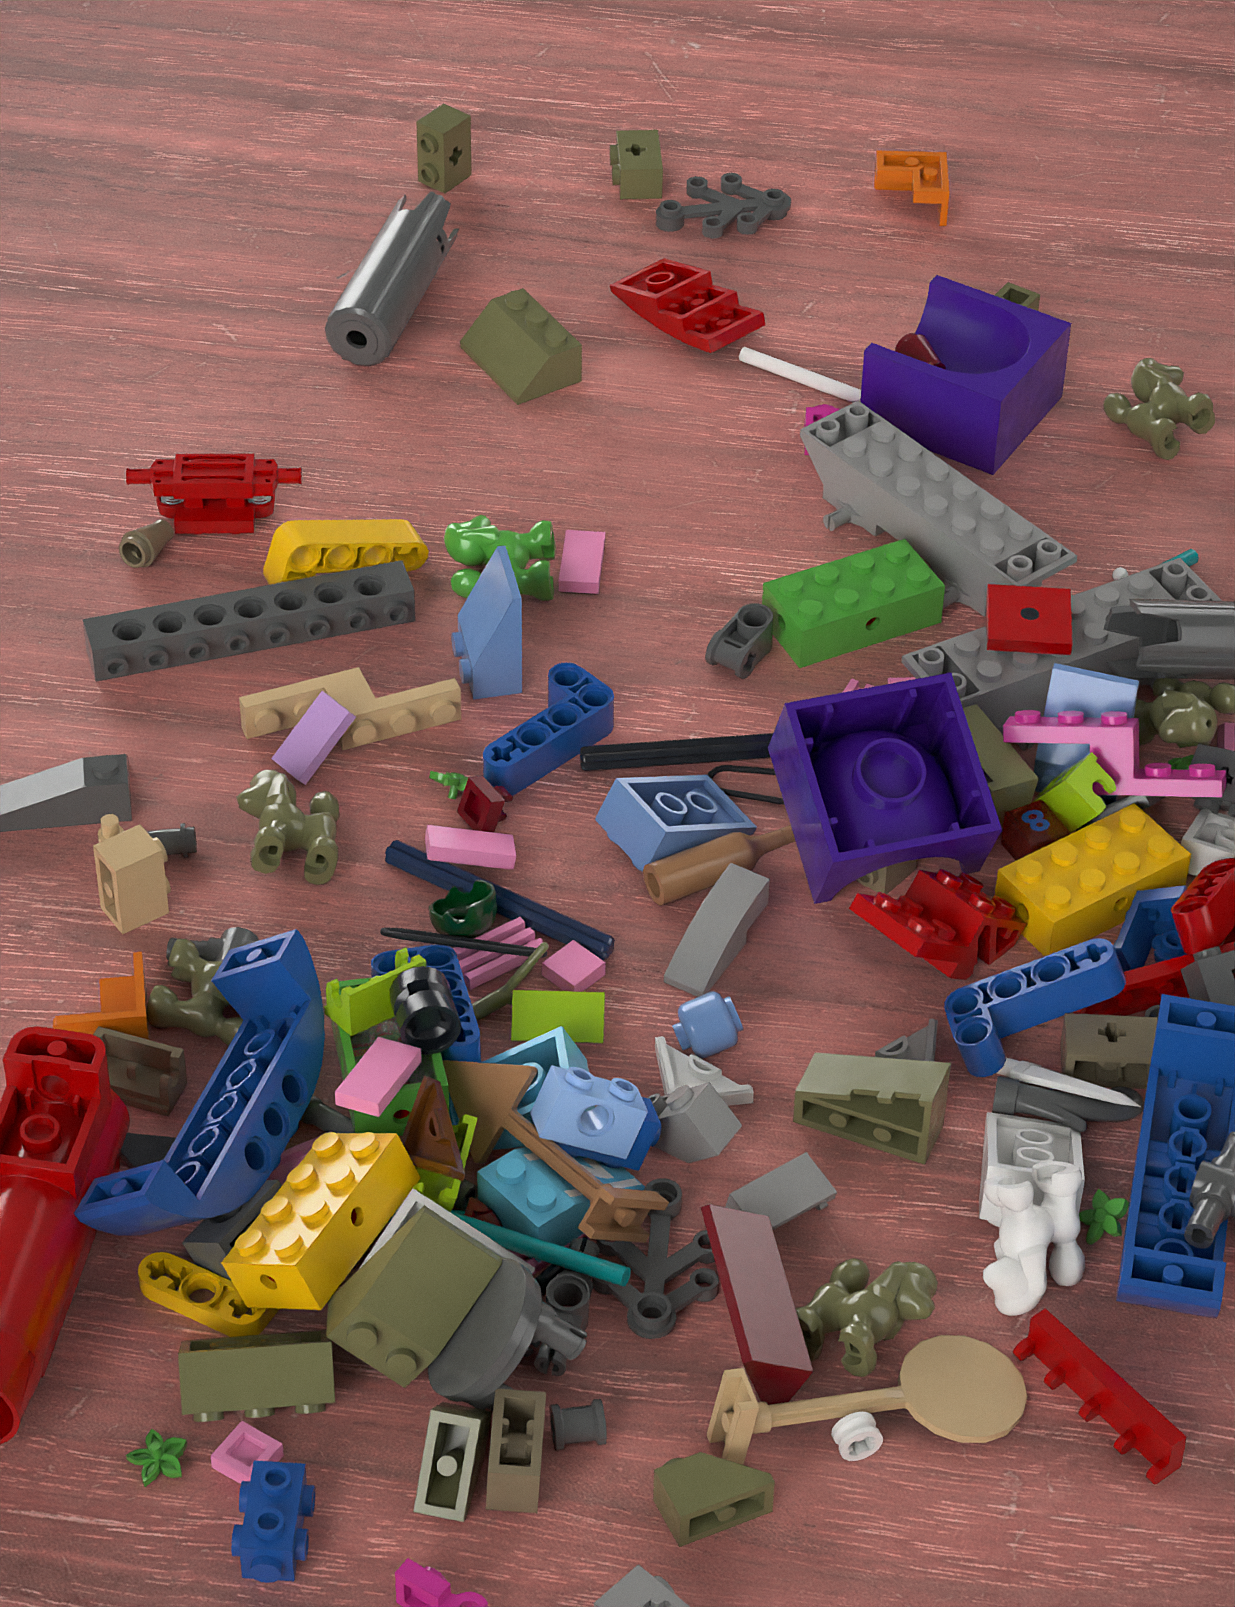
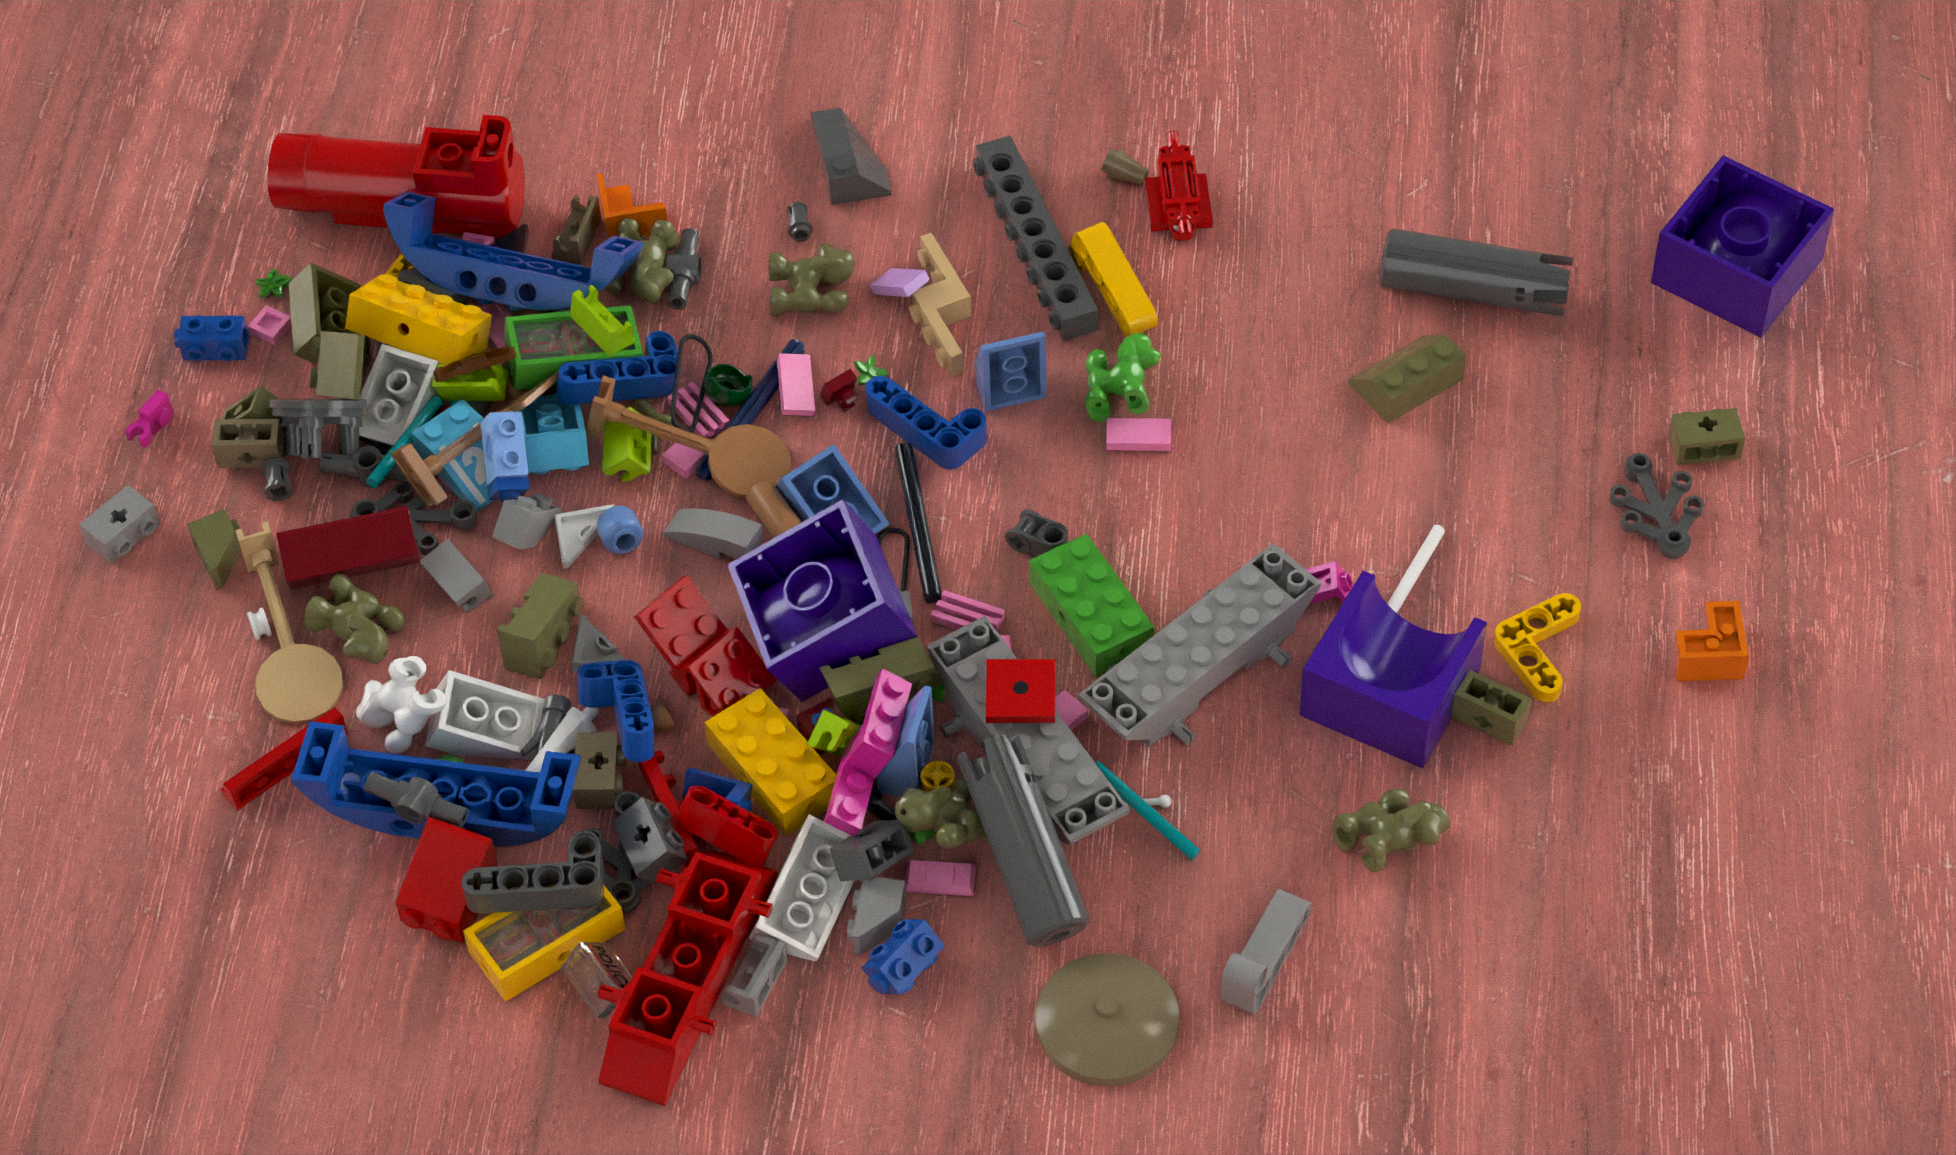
camera: 90 degrees right, 10 degrees up
(130, 875) = (744, 194): tan brick -> none
(378, 1076) = (517, 325): bright pink tile -> none
(382, 79) = (1741, 246): none -> dark purple piece
(425, 1009) = (573, 341): black wheel -> none
(444, 148) = (1677, 287): olive brick -> none
(586, 900) = (735, 458): none -> medium nougat piece
(687, 304) = (1497, 484): red slope -> none
(904, 312) = (1526, 641): none -> yellow beam
(918, 347) = (1406, 632): dark red cone -> none

